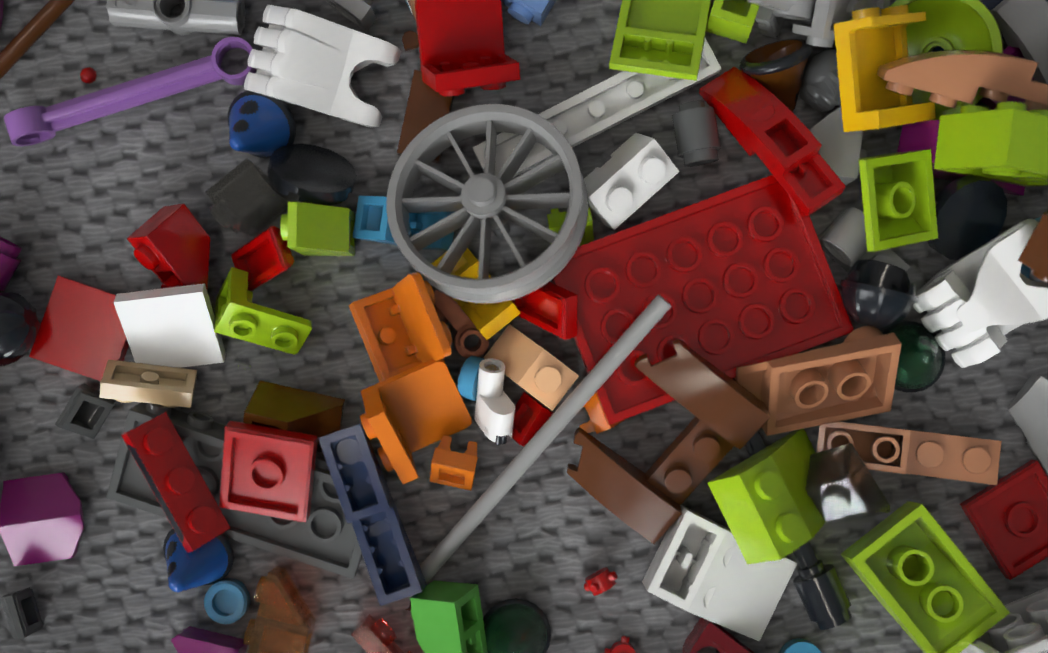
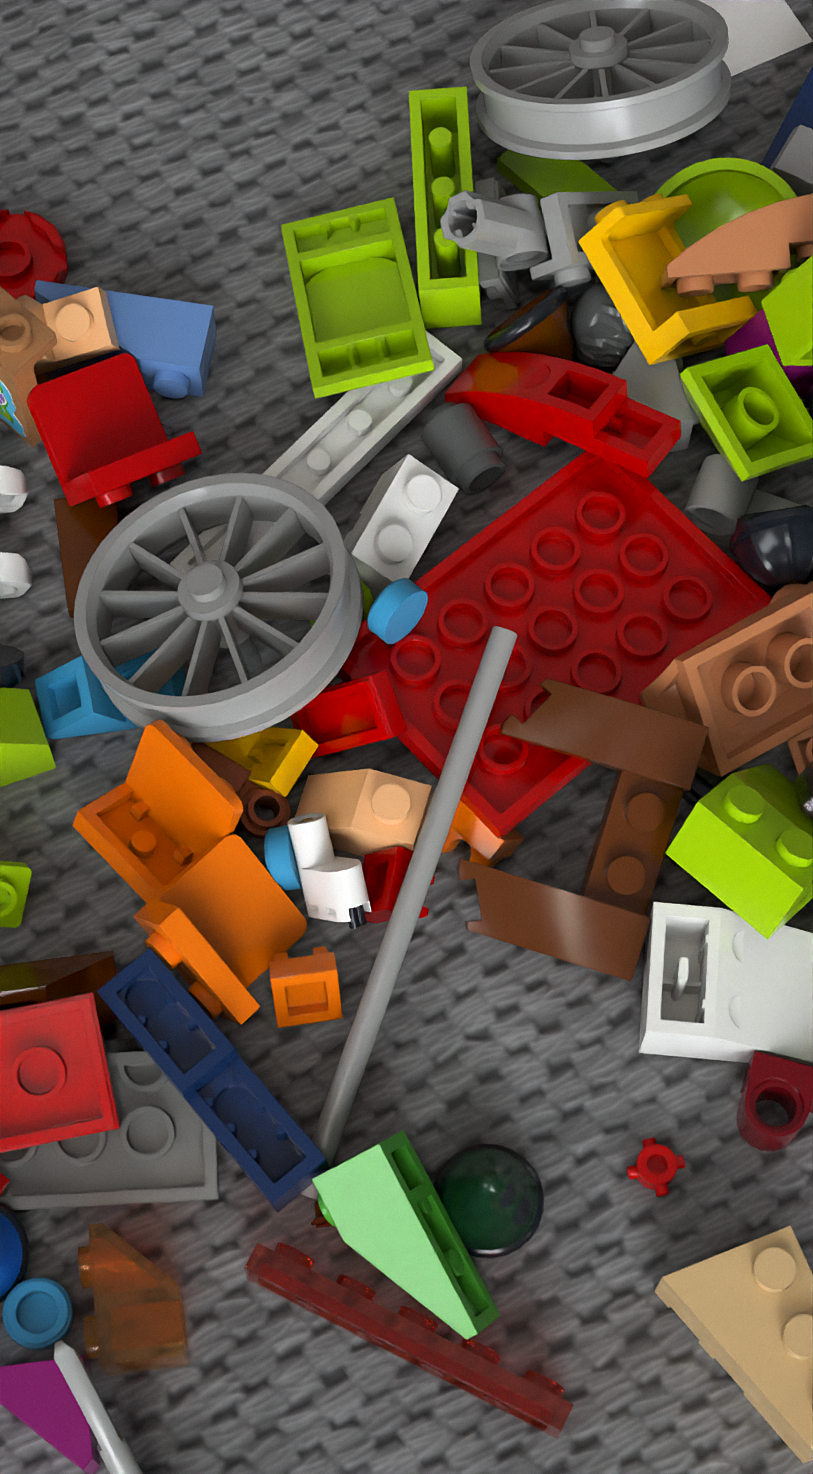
camera: 25 degrees left, 20 degrees down
(410, 40) = (35, 471): reddish brown piece -> none
(600, 581) = (579, 1071): red piece -> none
(601, 253) = (397, 610): none -> dark azure tile

